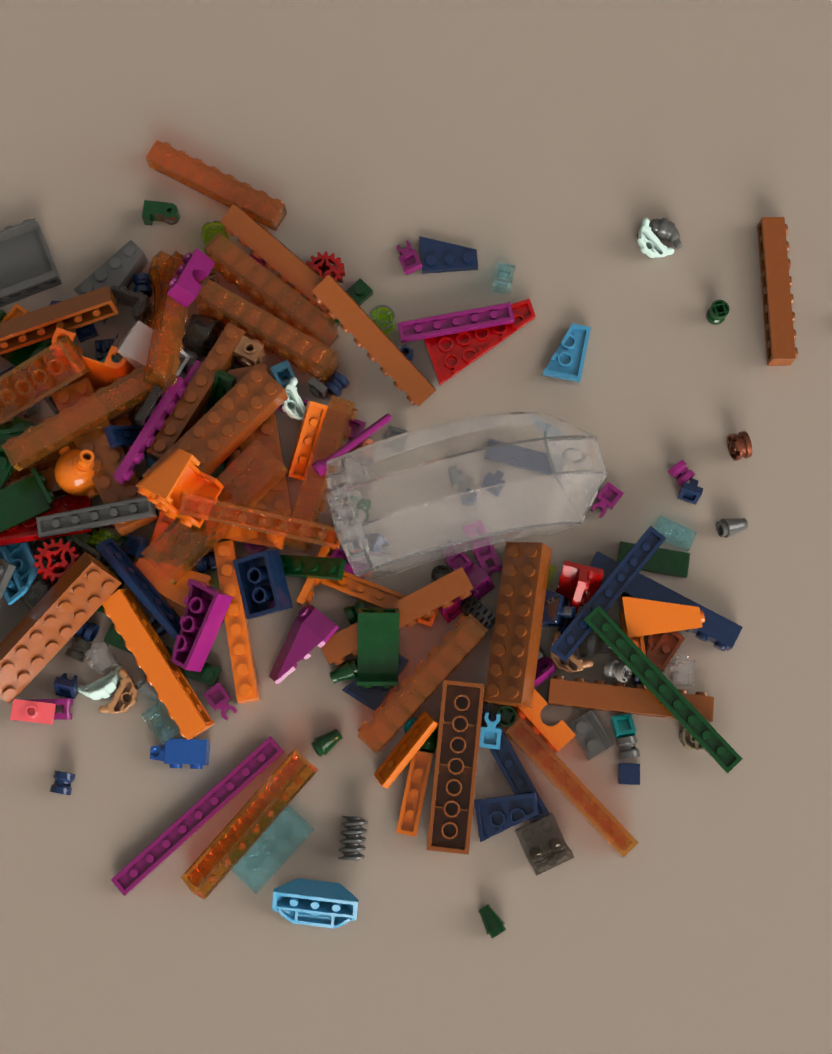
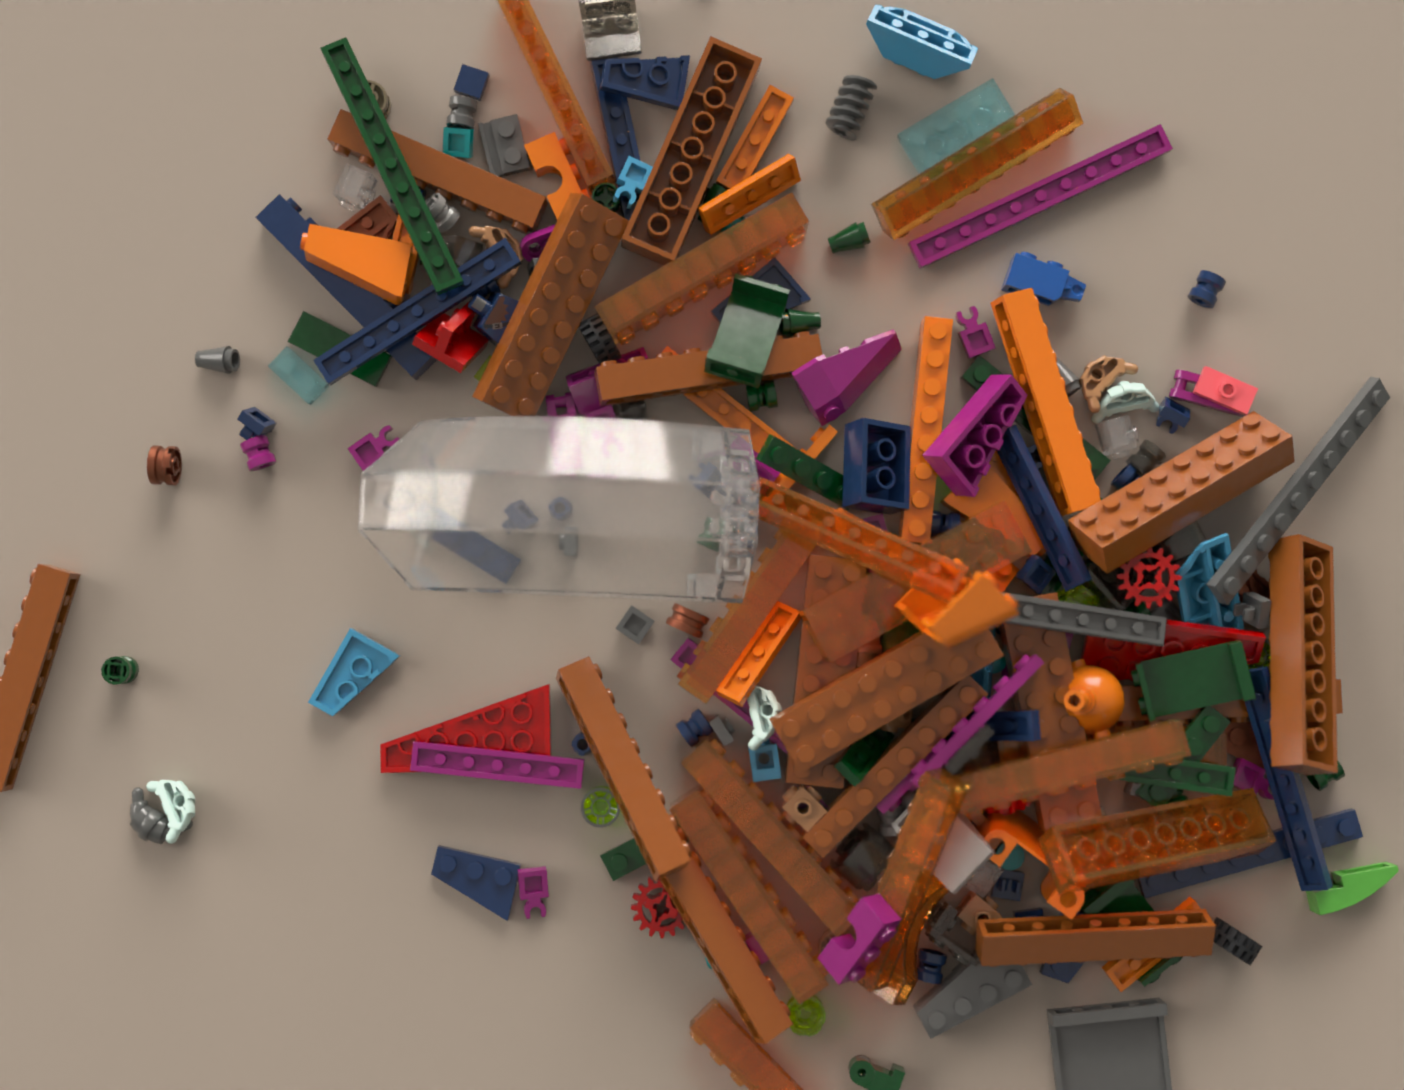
camera: 160 degrees left, 10 degrees up
(119, 323) = (974, 905): none -> medium nougat brick
(160, 723) = (1061, 325): clear light blue plate -> none
(321, 466) = (750, 604): magenta piece -> none
(503, 278) = (405, 817): clear light blue slope -> none

